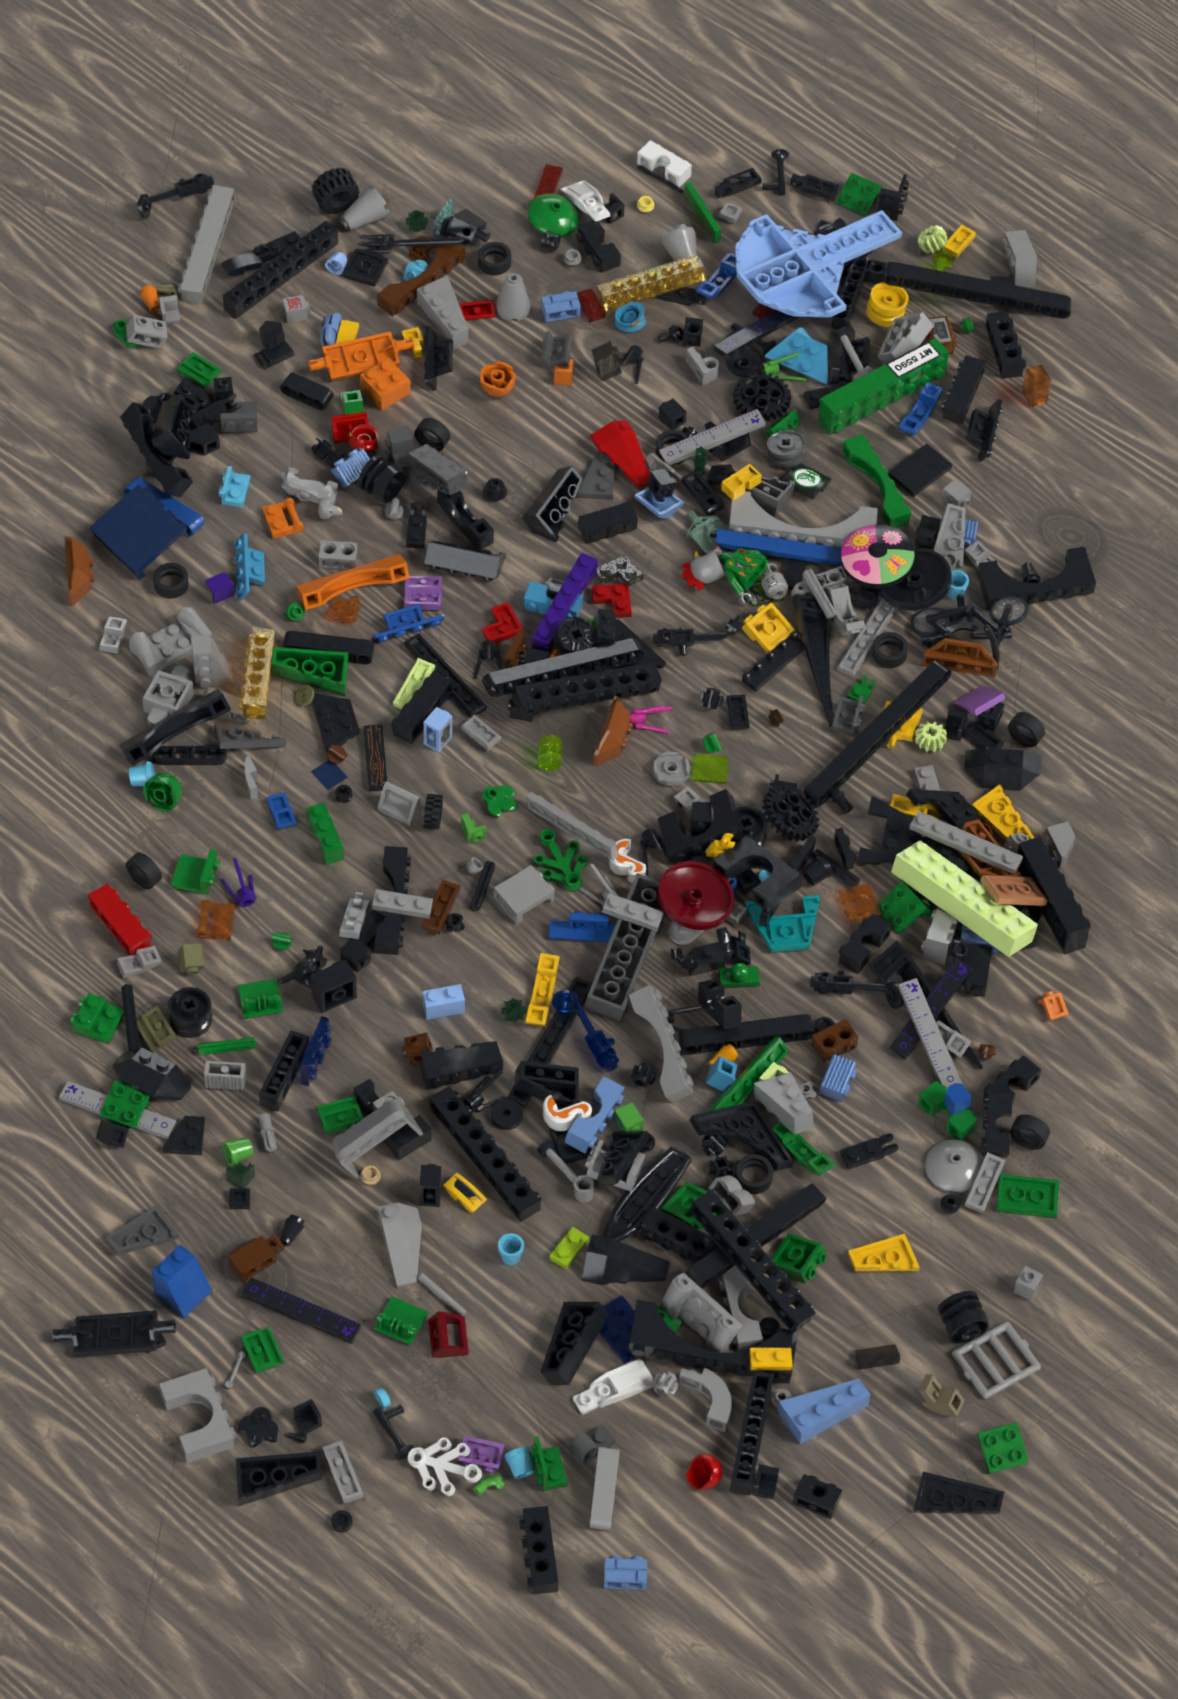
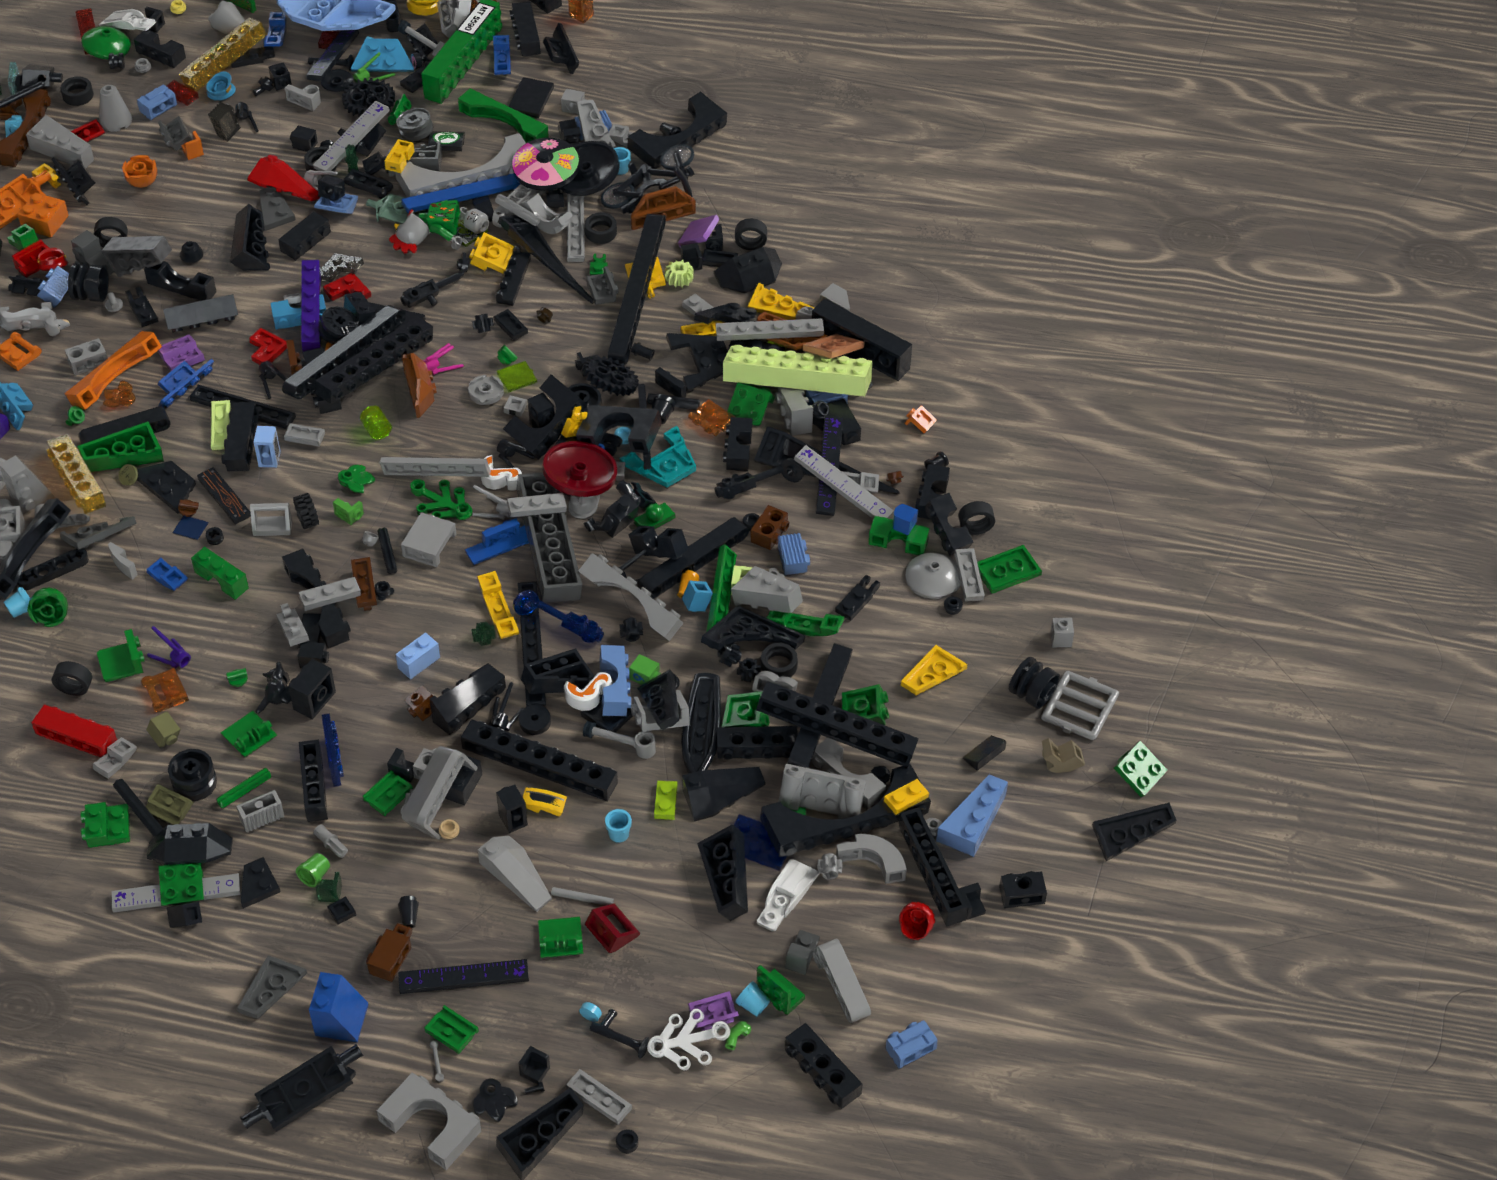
camera: 30 degrees left, 5 degrees down
(1037, 1056) = (939, 460): none -> black bush

